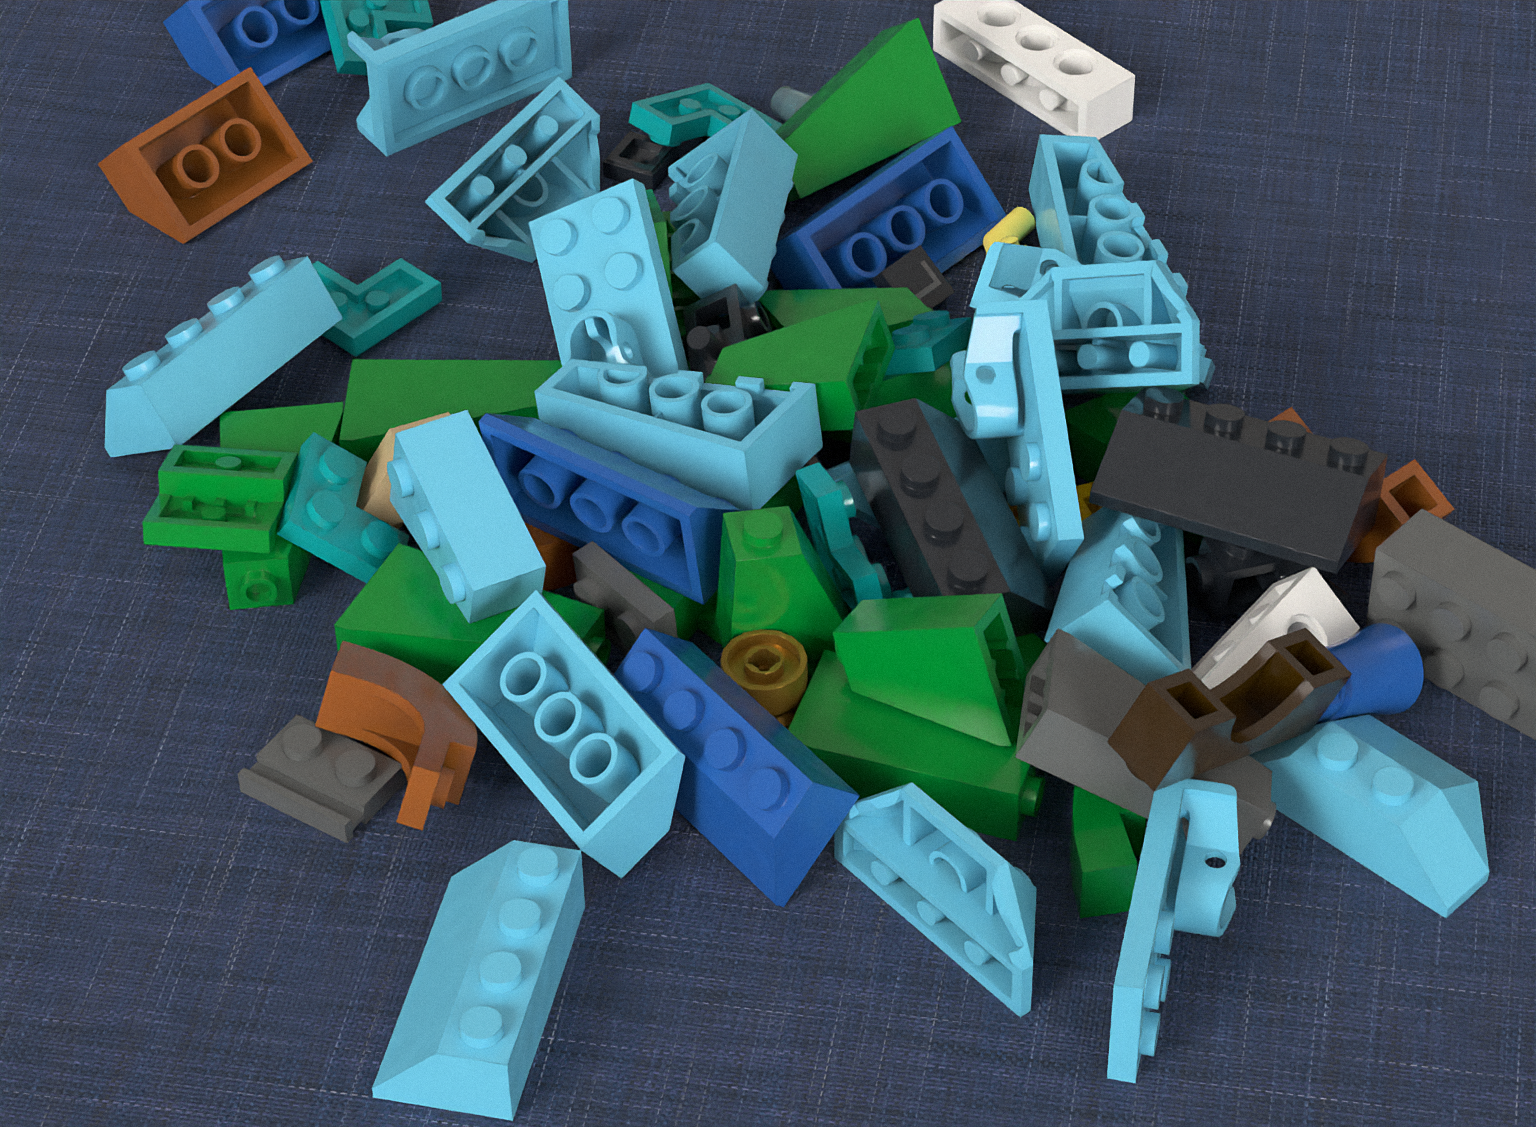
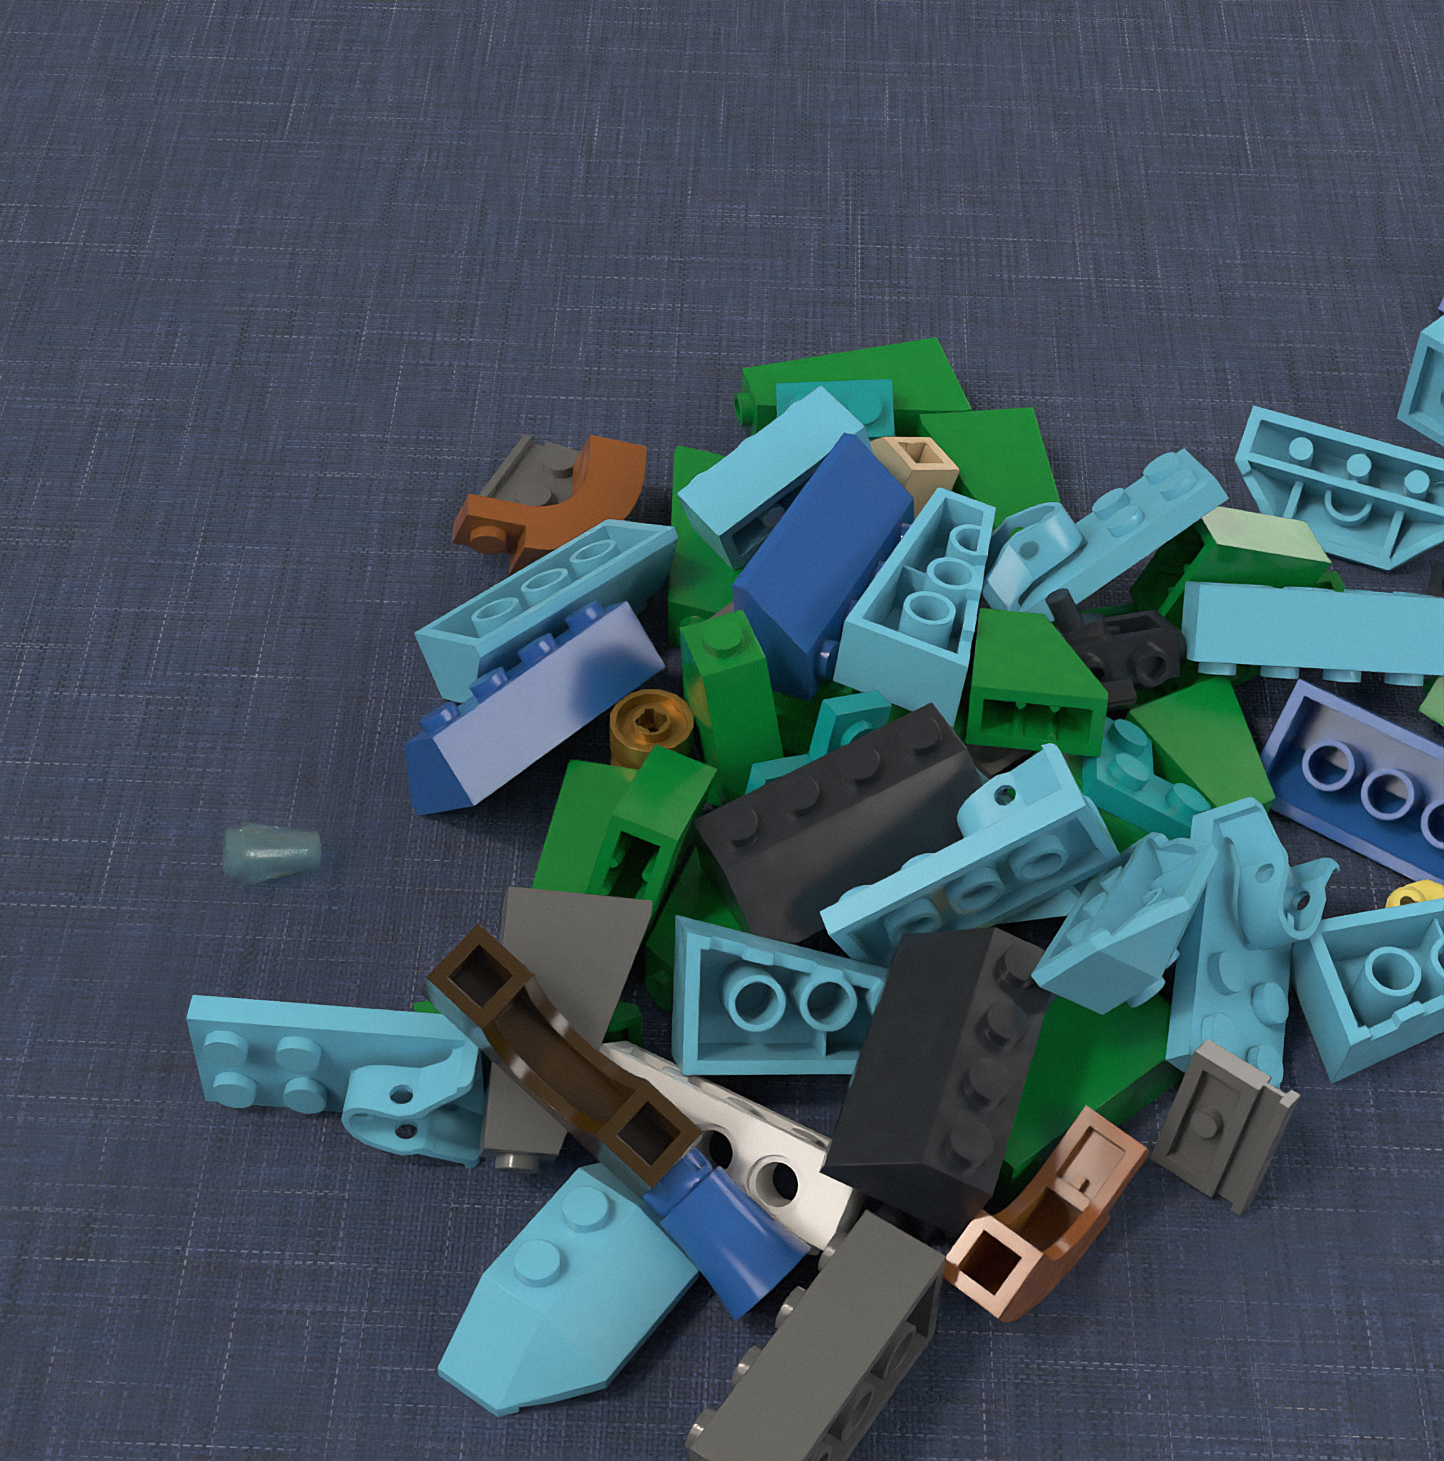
camera: 80 degrees right, 5 degrees up
(206, 159) = (1315, 288): dark orange slope -> none
(217, 357) = (1002, 319): medium azure slope -> none
(220, 498) = (810, 345): green slope -> none
(378, 303) = (1139, 415): teal plate -> none
(486, 982) = (290, 622): medium azure slope -> none
(840, 1016) = (268, 852): none -> clear light blue cone
(917, 274) = (1316, 821): black tile -> none
(945, 886) = (398, 919): medium azure wedge -> none
(1258, 363) = (1224, 1126): none -> dark grey plate

